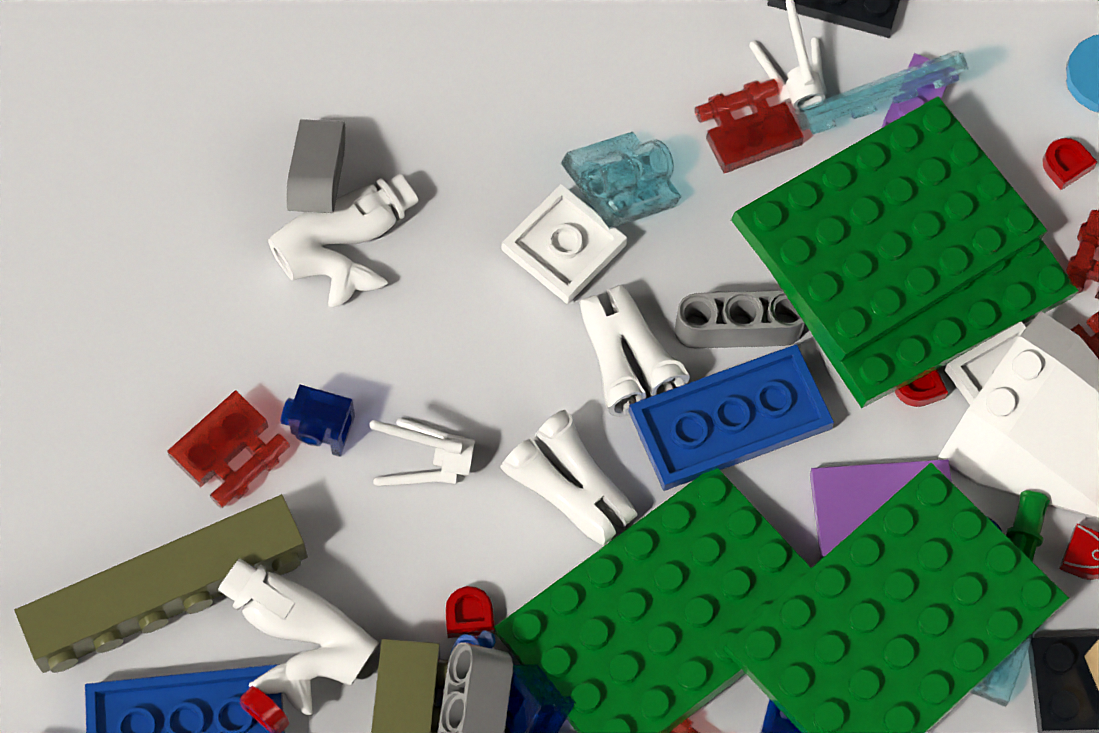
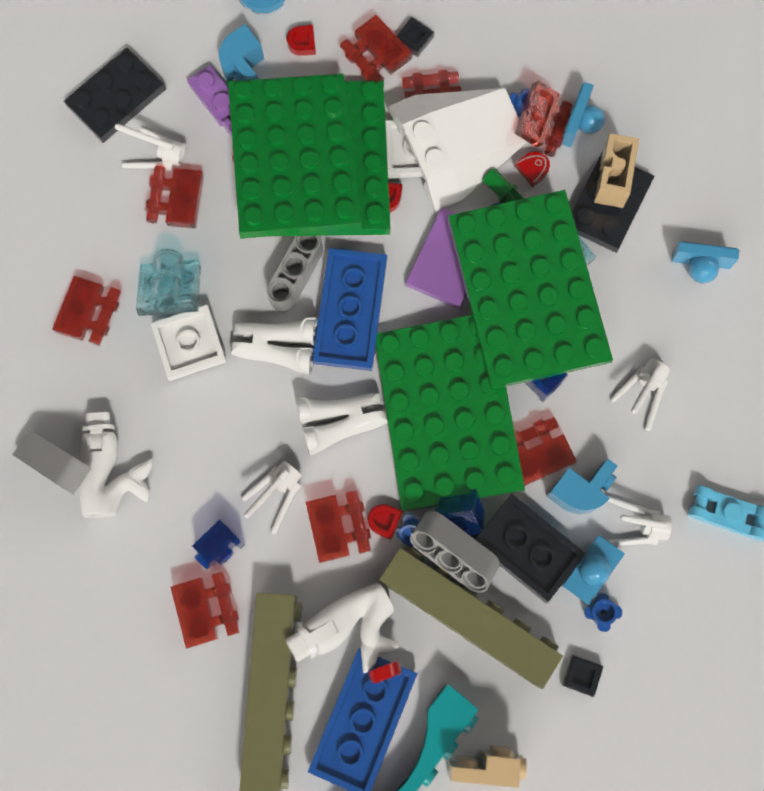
camera: 55 degrees left, 10 degrees up
(416, 546) = (328, 527): none -> clear red plate
(534, 95) = (79, 307): none -> clear red plate
(898, 86) = (205, 101): clear light blue plate -> none
(990, 94) = (239, 54): none -> dark azure brick

